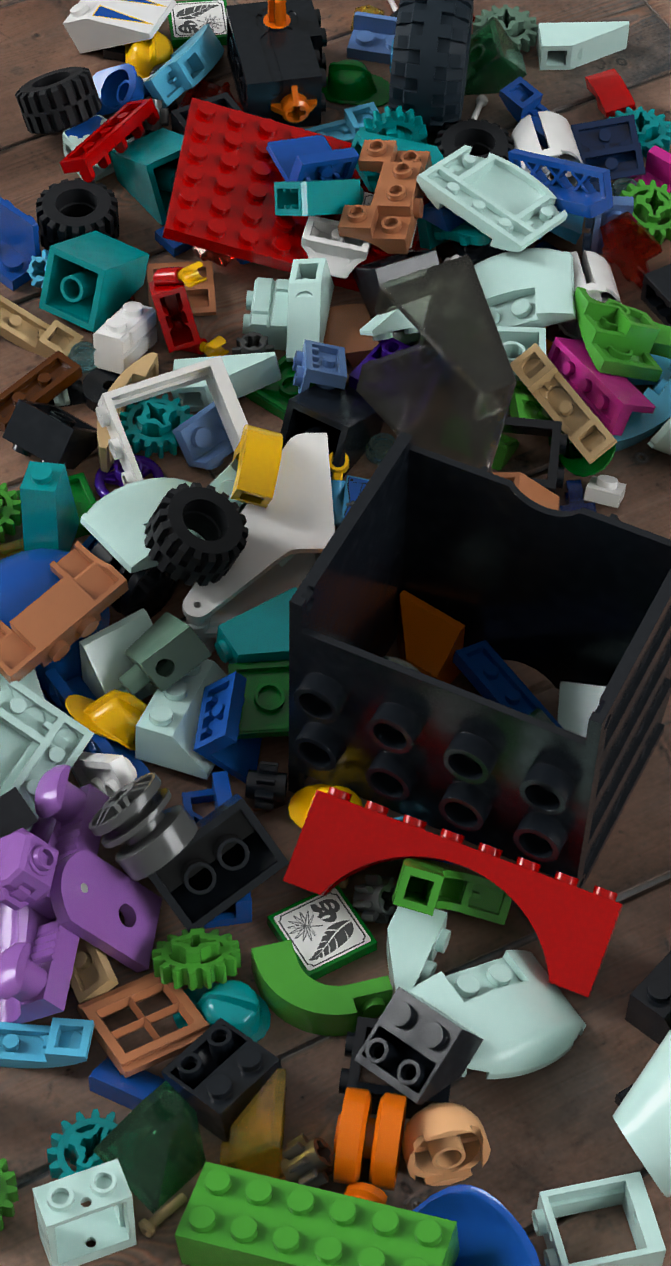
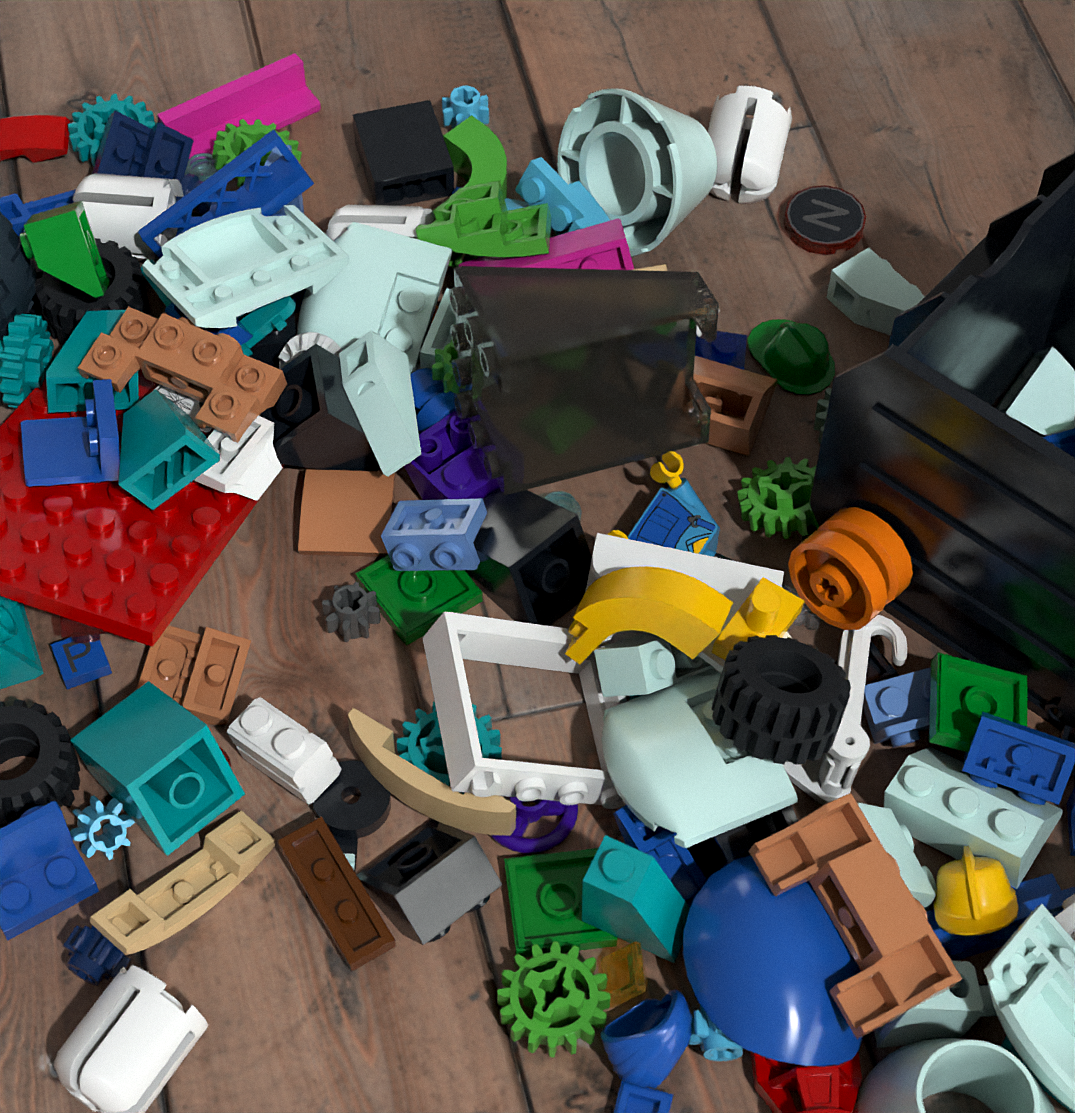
camera: 75 degrees left, 5 degrees up
(83, 354) = (283, 815): clear light blue plate -> none
(163, 655) = (921, 797): sand green torso -> none
(176, 313) = (272, 663): red torso -> none
(204, 439) = (504, 694): medium blue bracket -> none
(245, 371) = (394, 672): light aqua slope -> none
(257, 633) = (896, 673): teal slope -> none
(268, 311) = (284, 576): light aqua brick -> none
(277, 533) = (763, 613): none -> yellow tile
(308, 303) = (317, 523): light aqua slope -> none
(470, 112) = (66, 248): none -> green slope
(629, 247) = (329, 192): clear red bracket -> none

